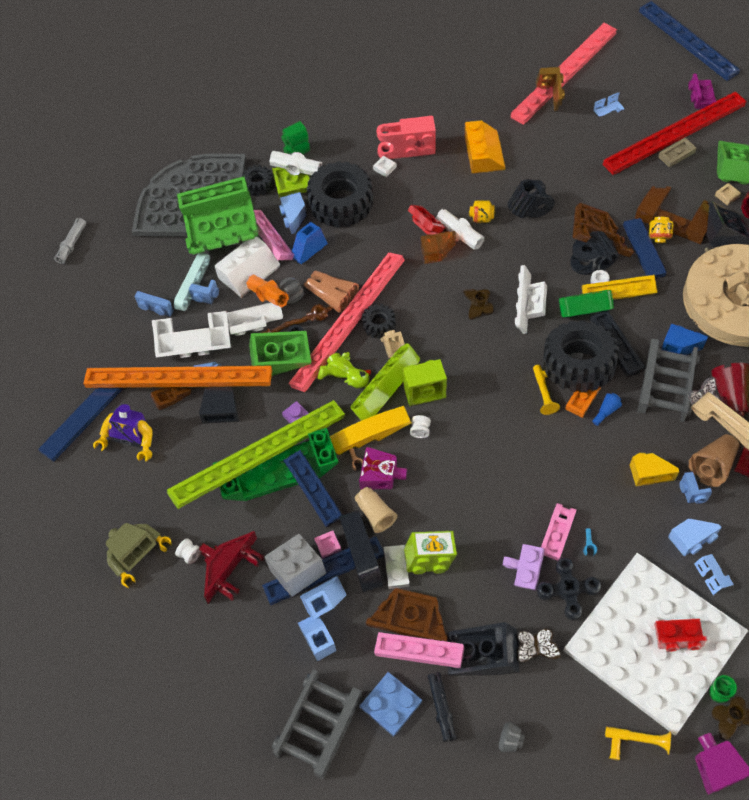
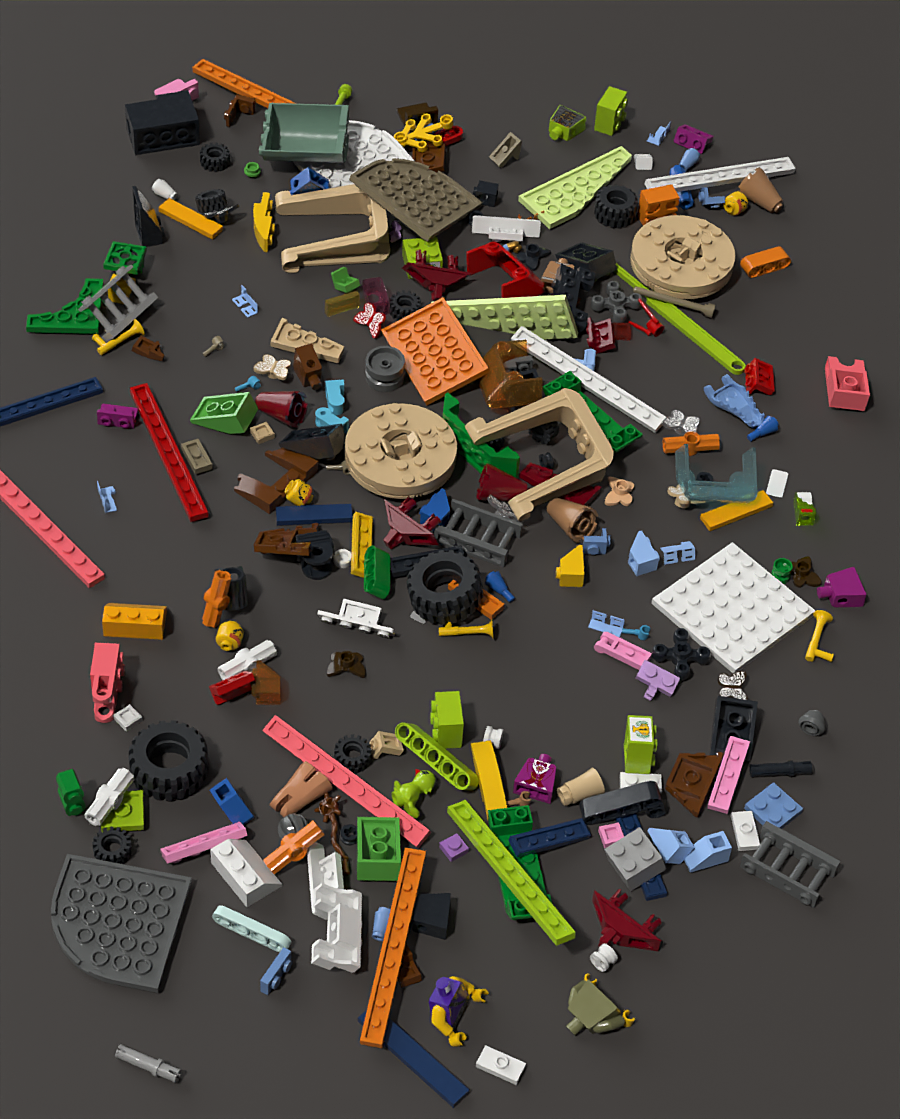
camera: 90 degrees left, 10 degrees down
(78, 481) = (500, 1065): none -> white plate
(204, 294) = (275, 914): medium blue bracket -> none
(218, 215) = (183, 880): bright green slope -> none
(294, 211) = (176, 814): light blue slope -> none
(357, 675) = (745, 830): none -> white plate
(507, 186) = (216, 598): none -> orange piece
(552, 78) = (80, 529): pearl gold bracket -> none
(588, 512) = (601, 626): none -> light blue piece
(651, 314) = (406, 529): none -> dark red connector
(680, 634) = (735, 584): red bracket -> none

